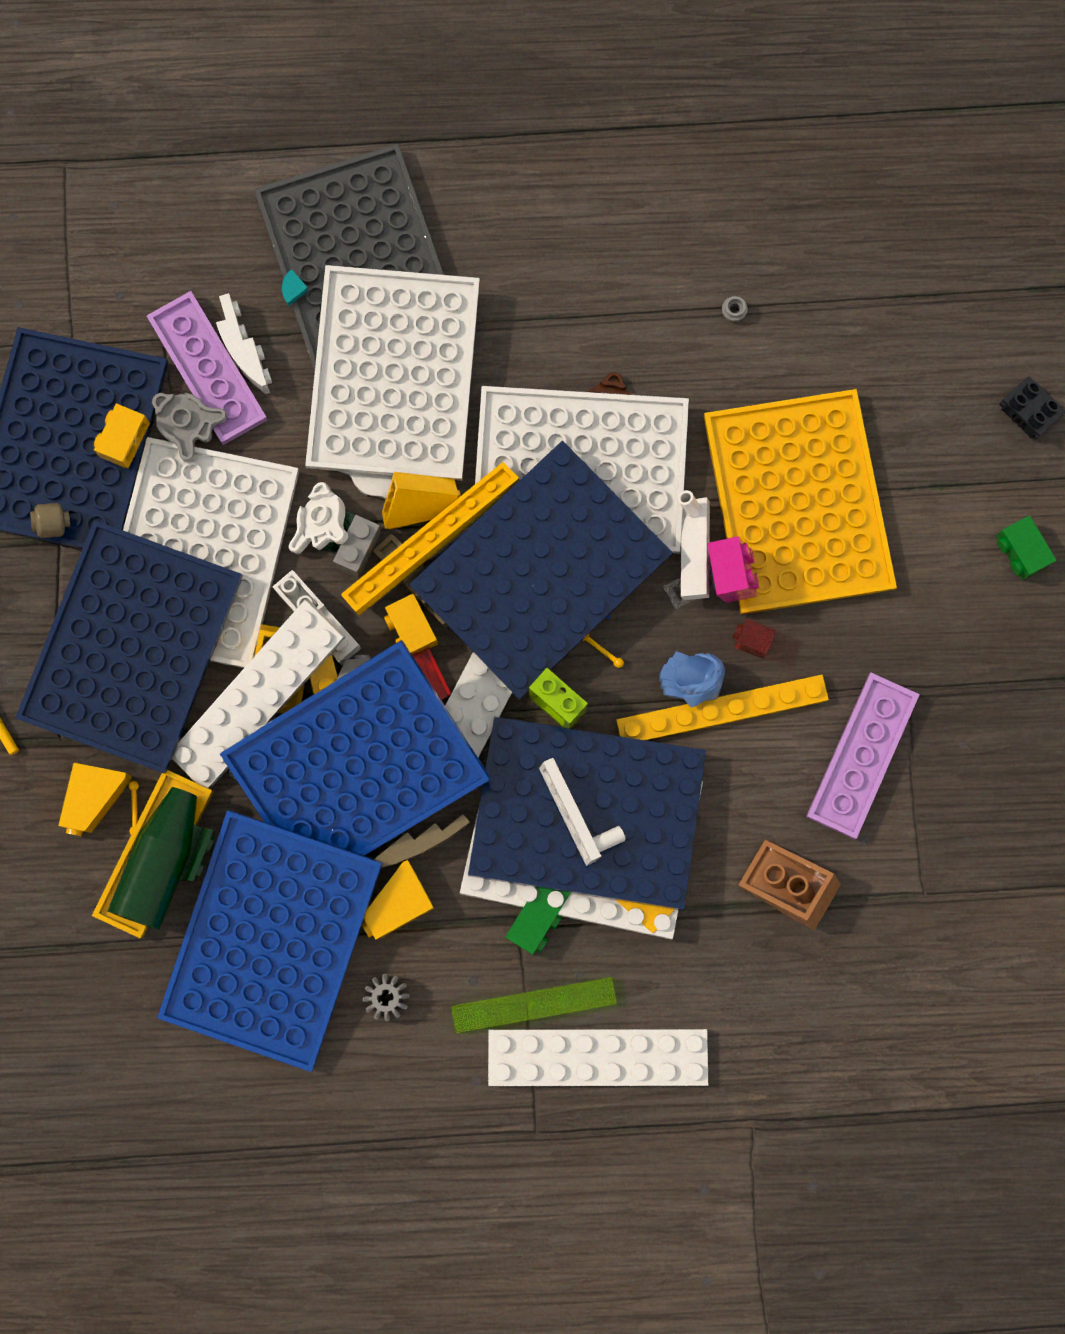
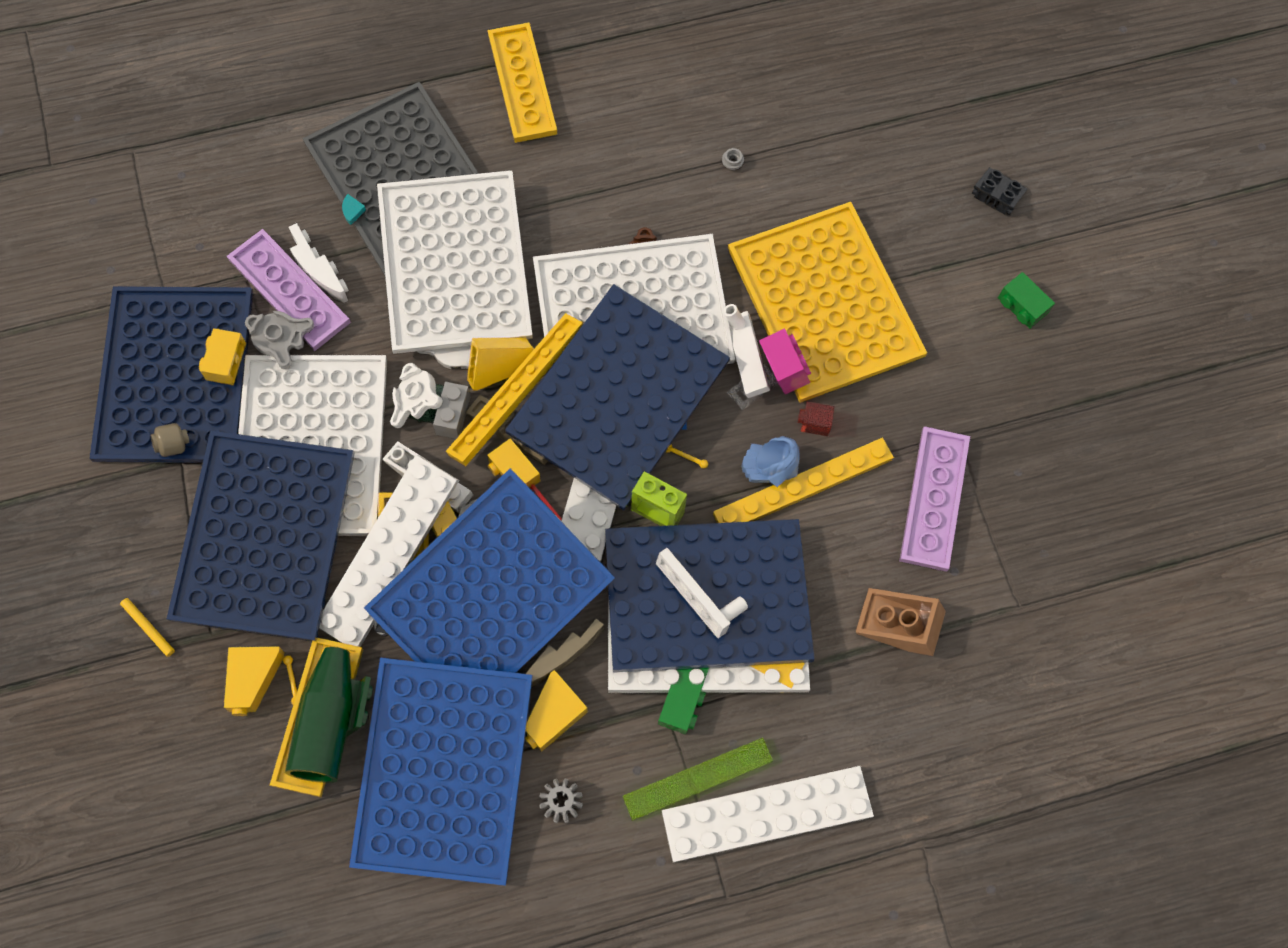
camera: 15 degrees left, 10 degrees down
(514, 166) = (522, 82): none -> yellow plate

